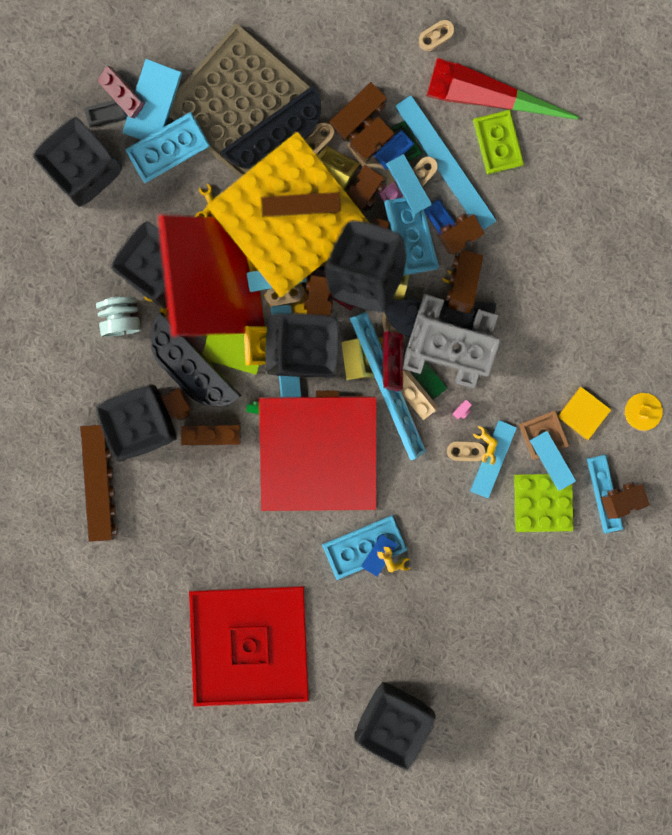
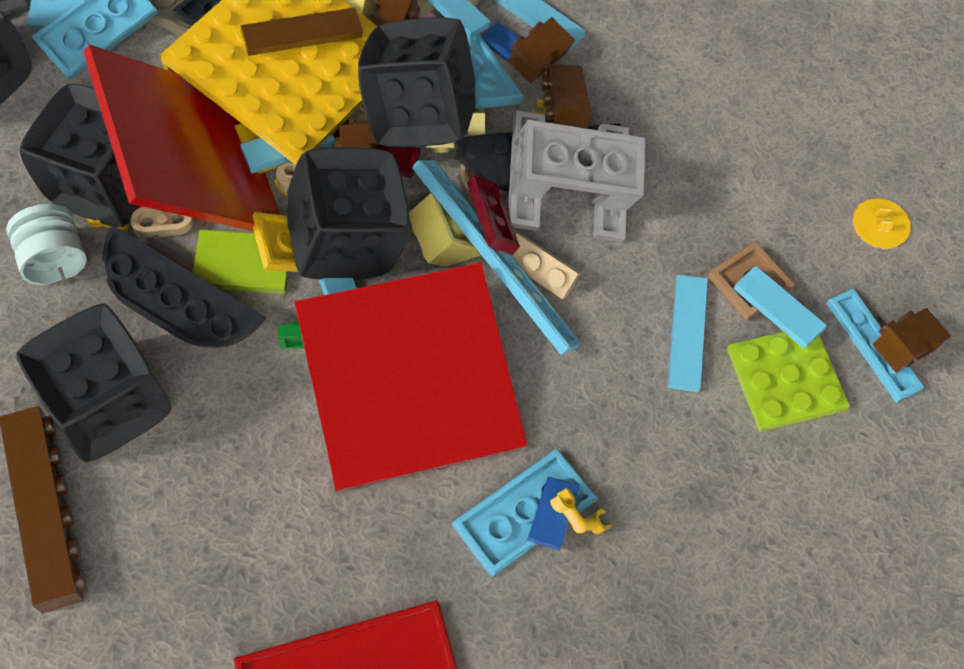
camera: 20 degrees left, 25 degrees down
(177, 404) = (161, 347): reddish brown brick -> none
(211, 435) = (226, 388): reddish brown brick -> none
(429, 381) = (556, 242): dark green tile -> none
(463, 410) = (618, 270): bright pink plate -> none
(465, 451) = (640, 327): tan plate -> none
(491, 447) = (679, 302): yellow arm -> none
(584, 413) = (798, 241): yellow tile -> none

